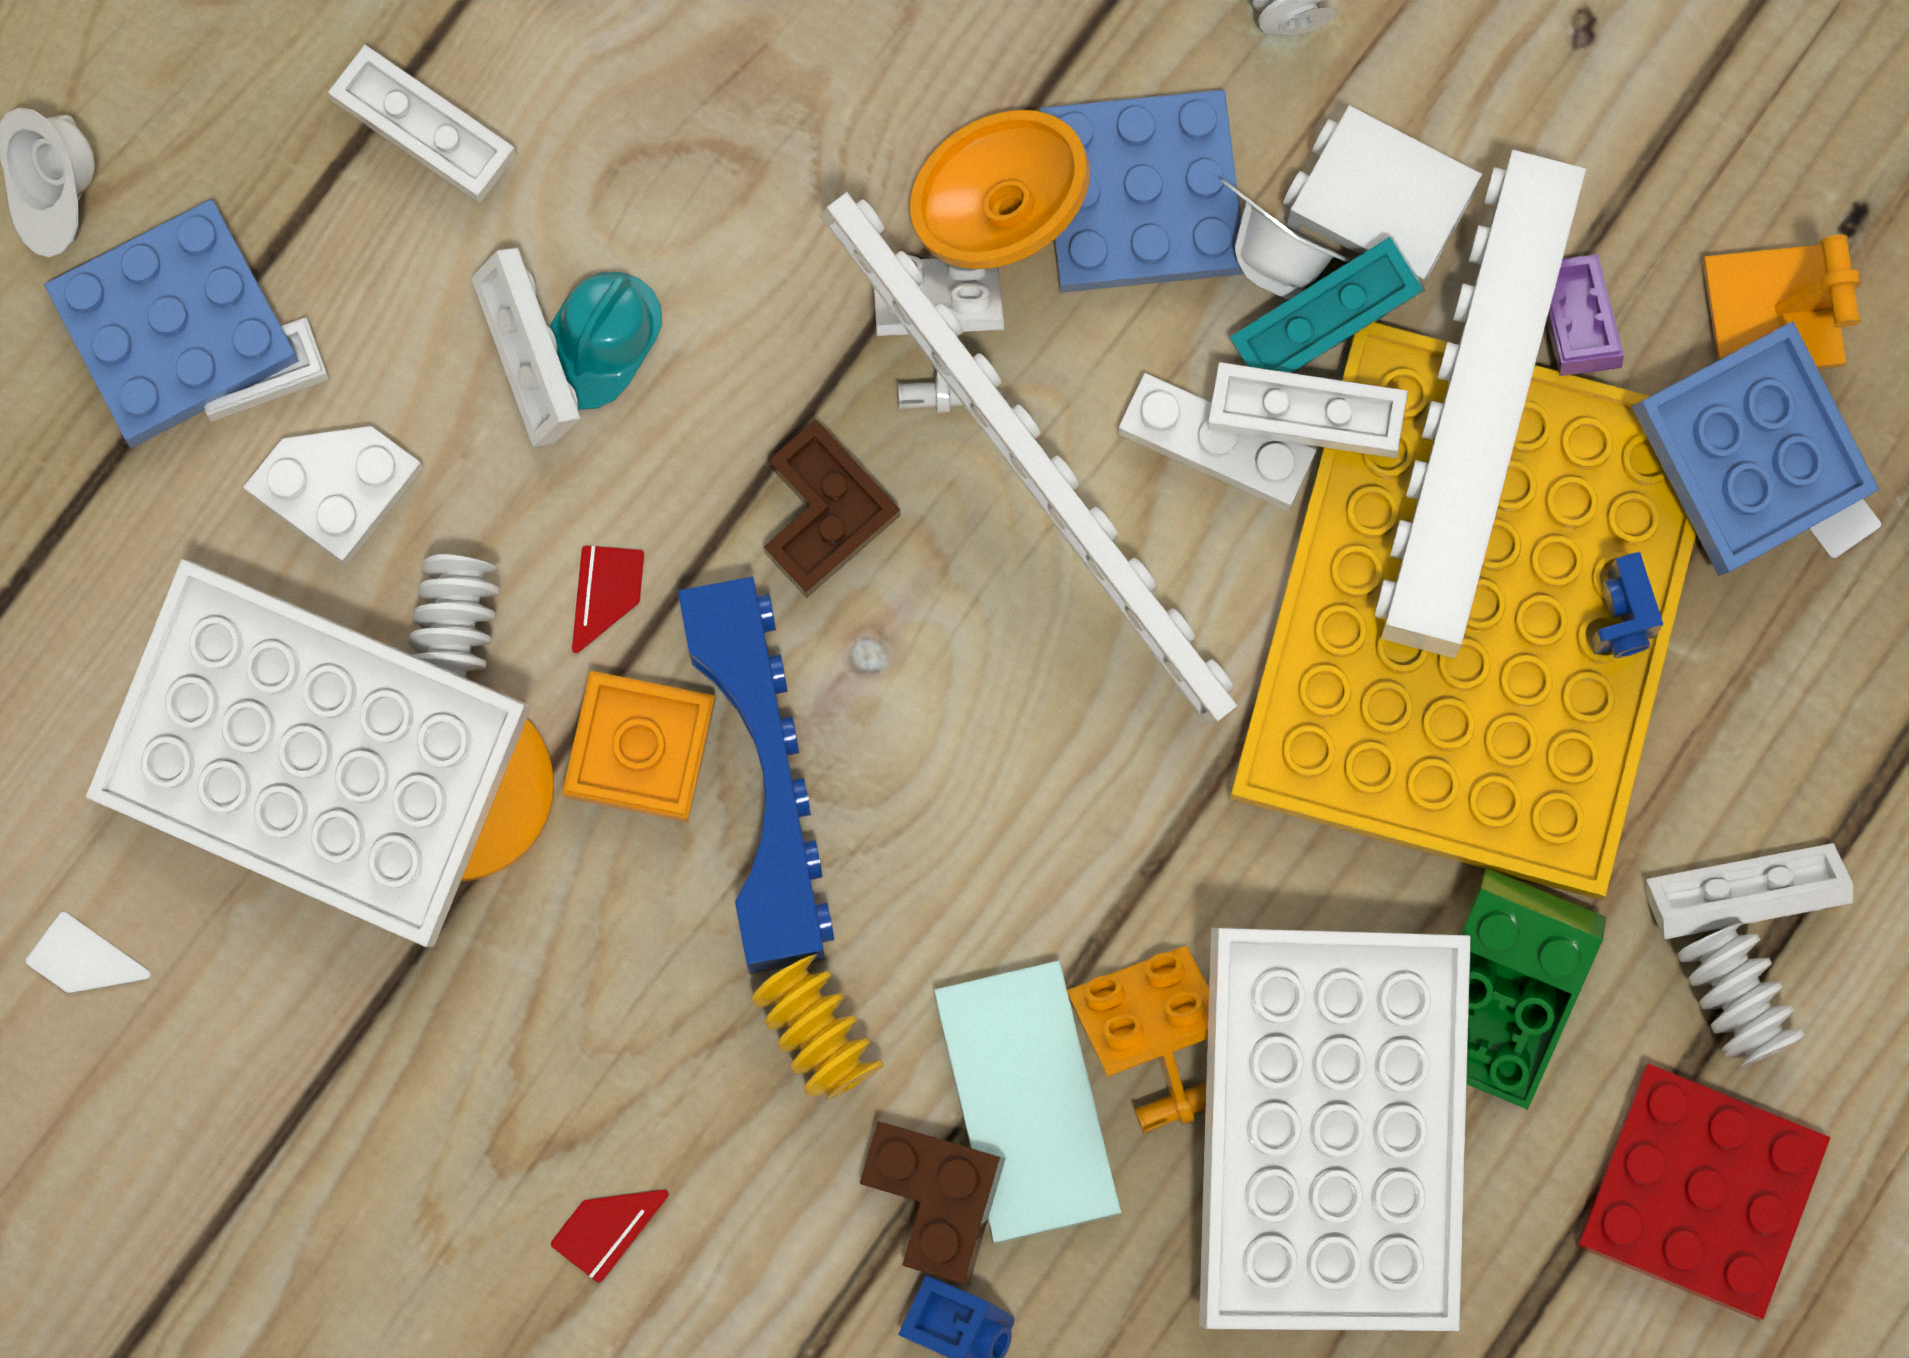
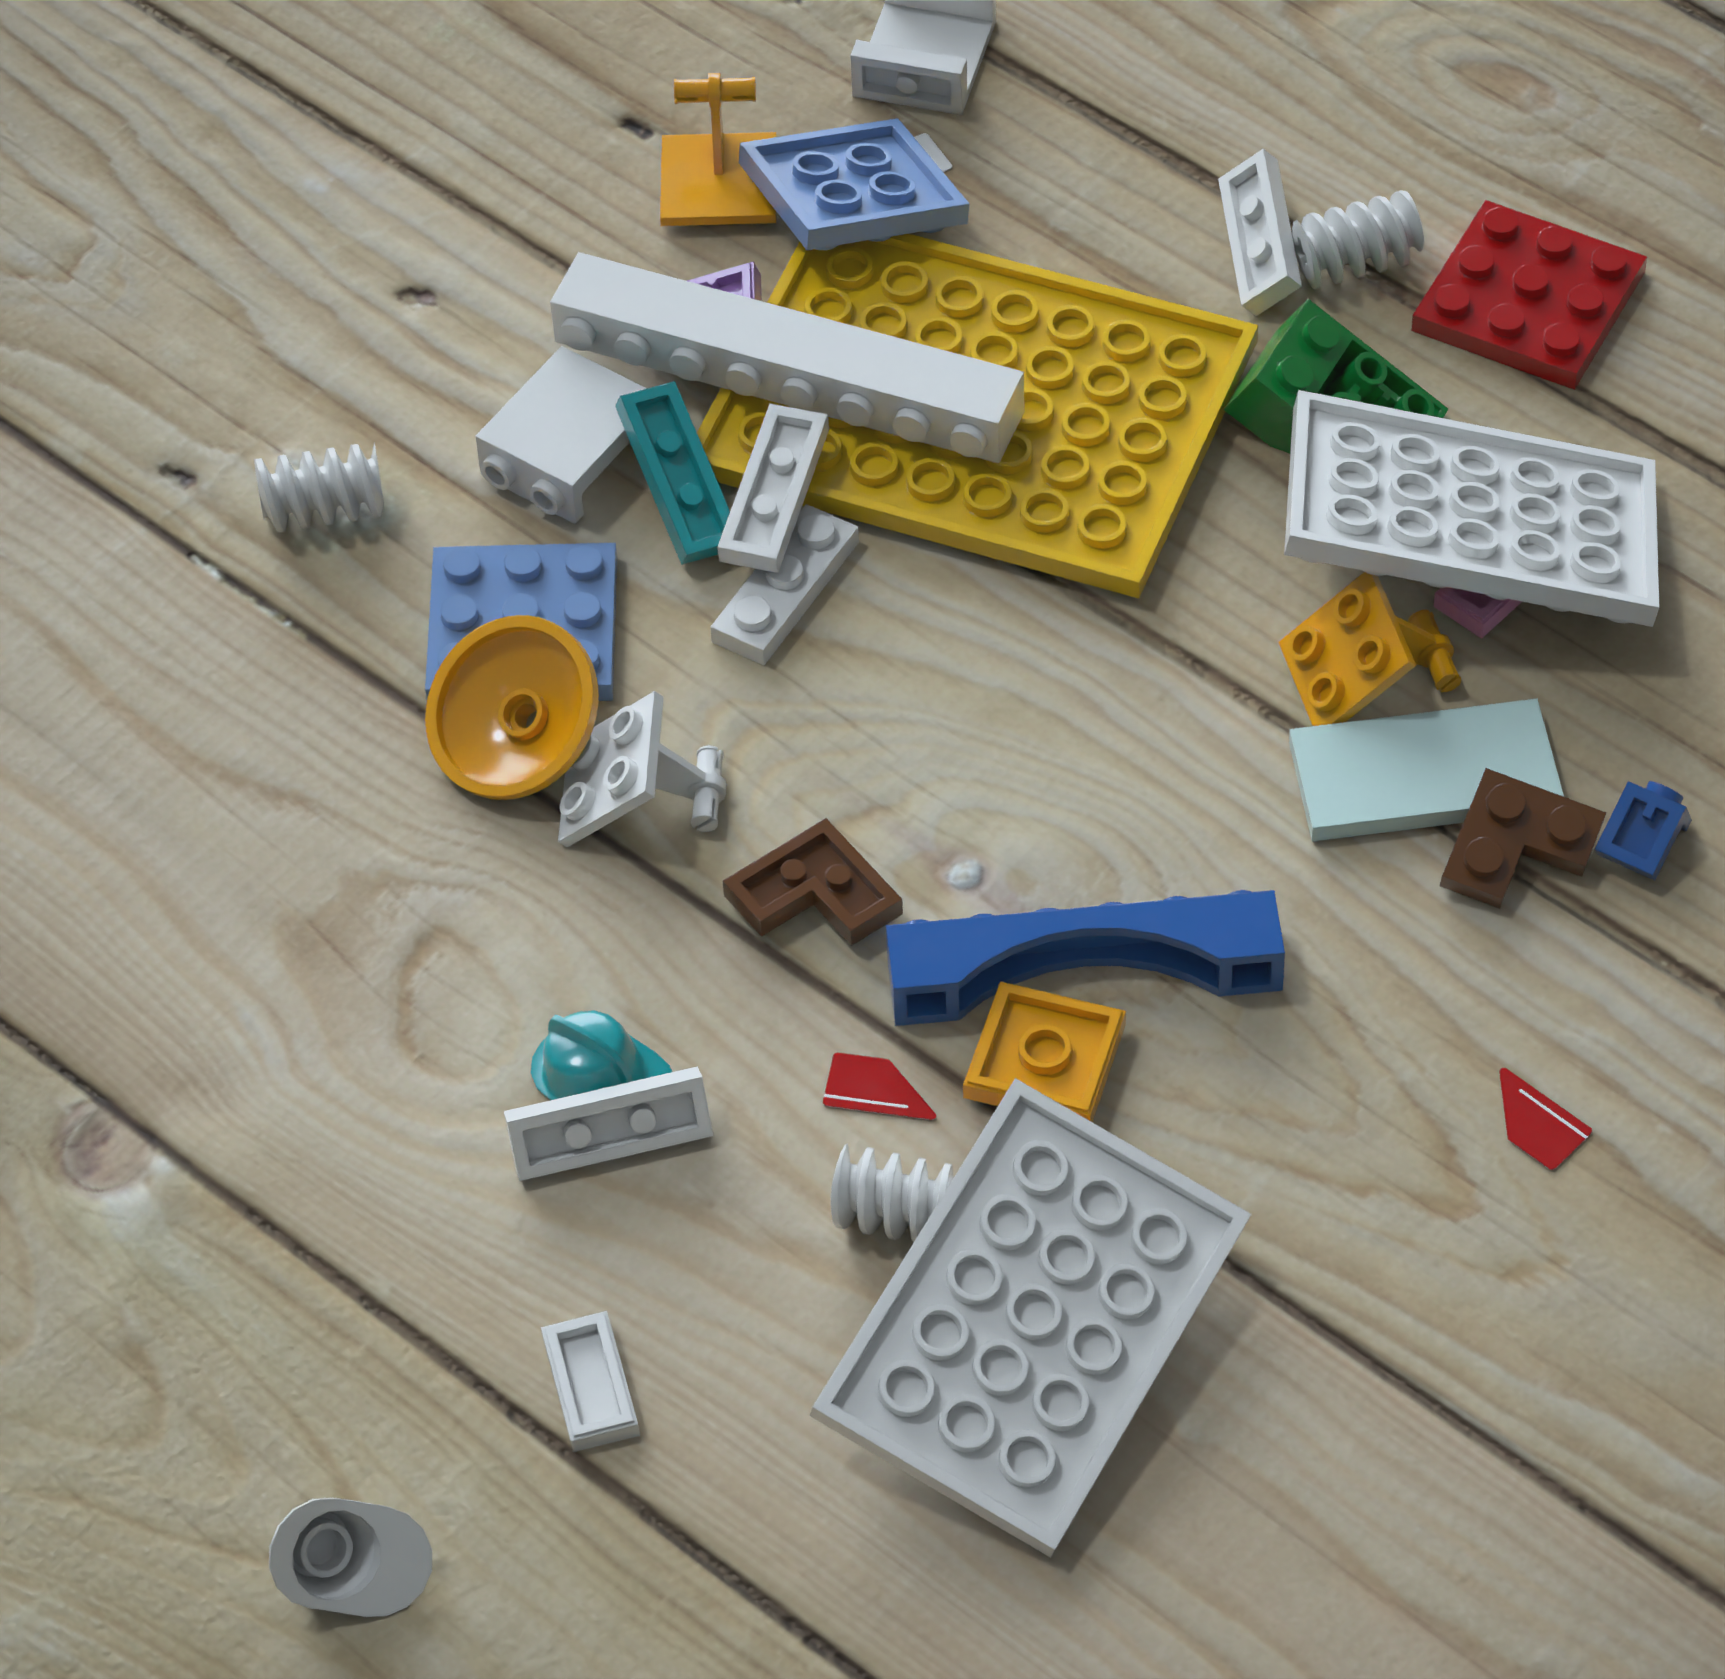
camera: 80 degrees left, 25 degrees down
(81, 959) = (1227, 1581): white sticker -> none
(171, 323) = (527, 1456): medium blue plate -> none
(334, 485) = (733, 1315): white plate -> none
(422, 123) = (343, 1209): white plate -> none
(814, 1030) = (1351, 910): yellow piece -> none
(1014, 437) = (792, 684): white plate -> none
(1276, 255) = (601, 507): white piece -> none
(1632, 598) = (993, 268): blue bracket -> none

